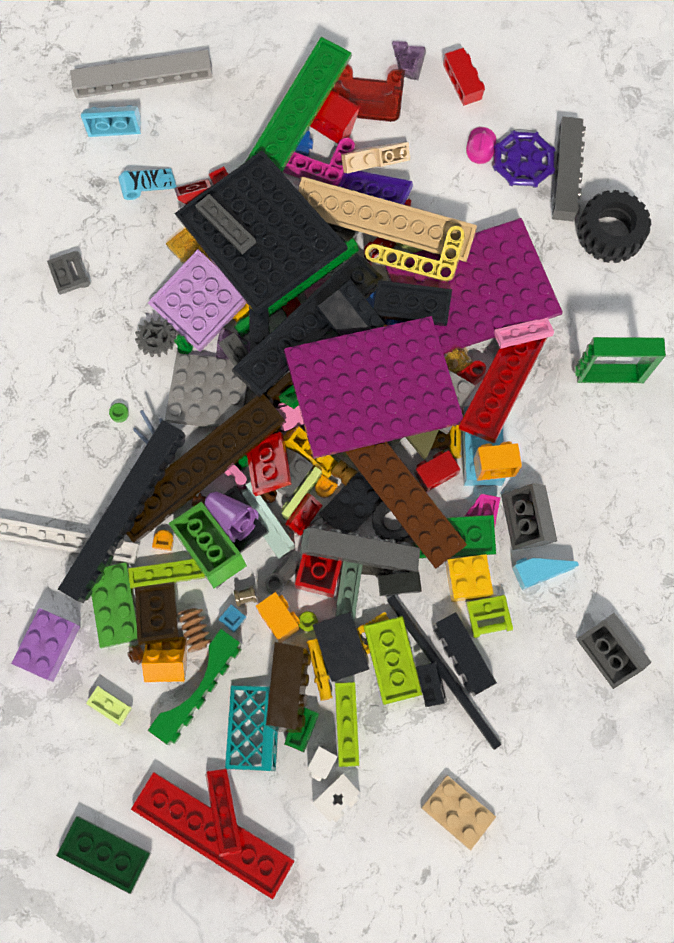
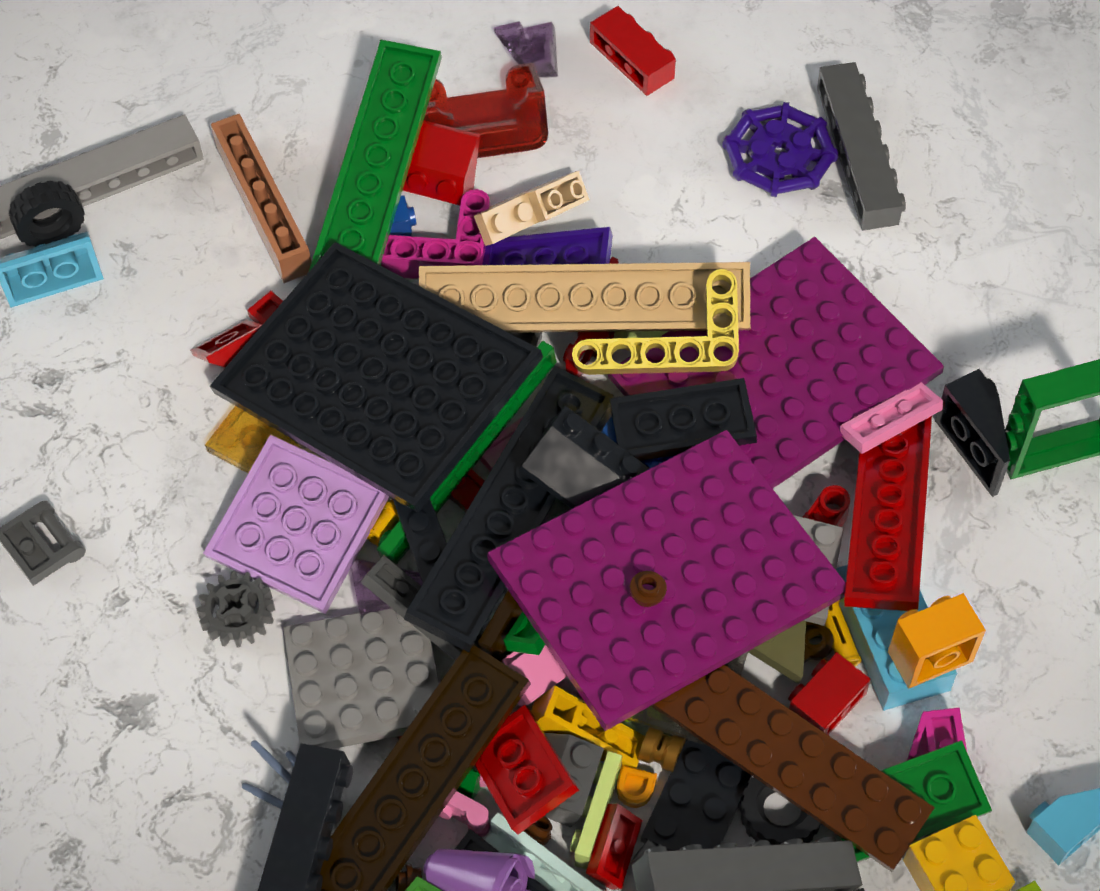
camera: 15 degrees left, 15 degrees down
(114, 81) = (41, 198): none -> black tyre
(118, 412) = (206, 764): bright green tile -> none
(136, 181) = (117, 358): medium azure door -> none
(184, 346) = (291, 608): green piece -> none
(225, 224) = (312, 375): dark grey plate -> none
(234, 110) = (262, 198): none -> nougat brick
(358, 397) = (645, 597): none -> reddish brown plate
(462, 358) = (801, 489): clear yellow brick -> none
(481, 145) = (700, 147): dark pink piece -> none
(529, 517) = (1021, 729): dark grey slope -> none
(567, 348) = (976, 427): none -> black slope
(619, 206) = (976, 180): black tyre -> none

